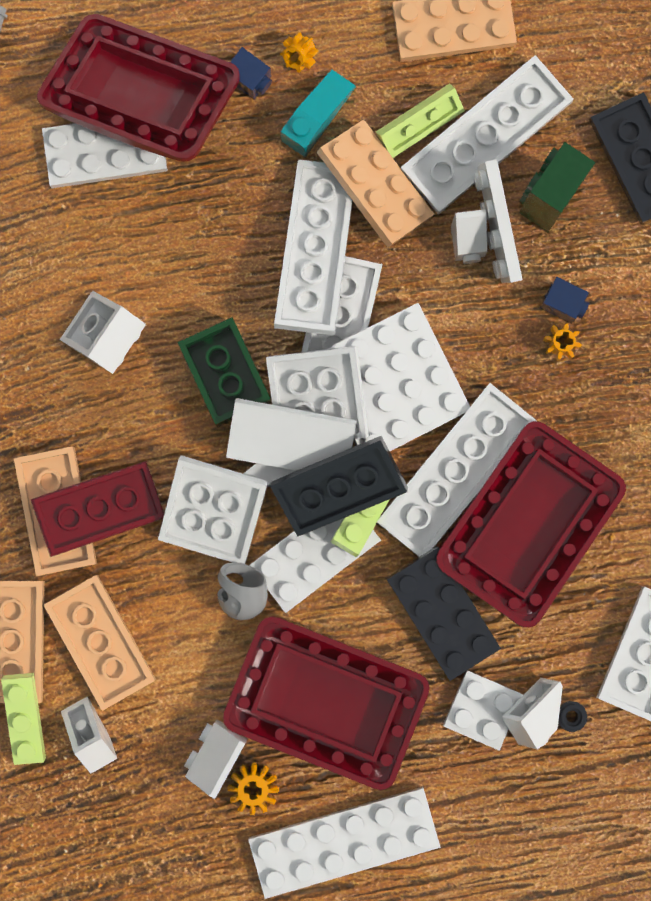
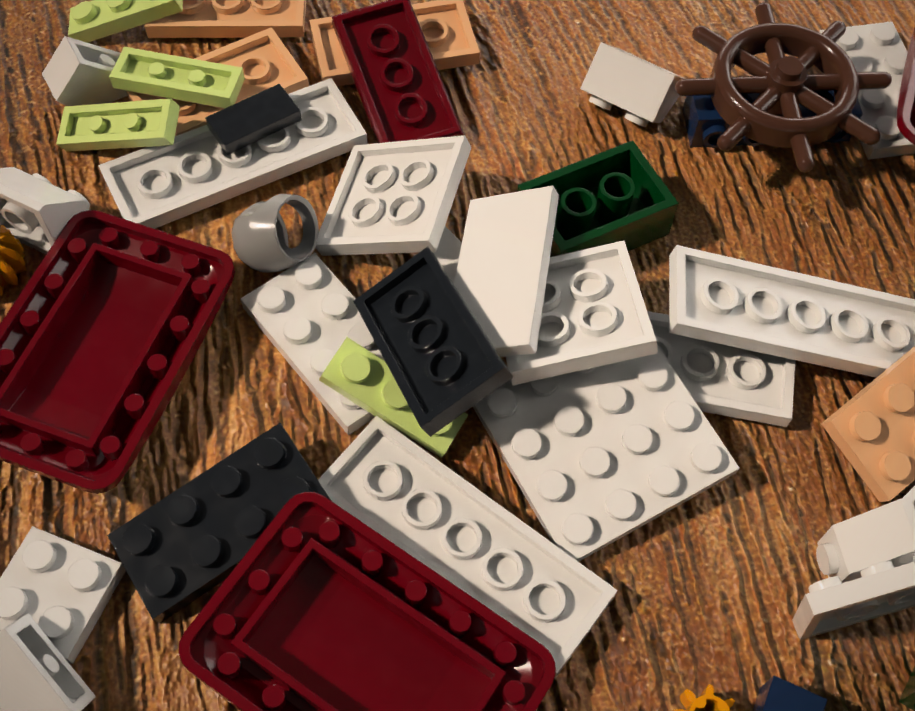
camera: 85 degrees right, 25 degrees down
(103, 669) = (177, 77): none -> yellowish green plate
(132, 232) = (780, 100): none -> reddish brown brick
(140, 611) = (253, 119): none -> black tile
(143, 709) = (118, 125): none -> yellowish green plate
(163, 625) = (196, 173): none -> white plate

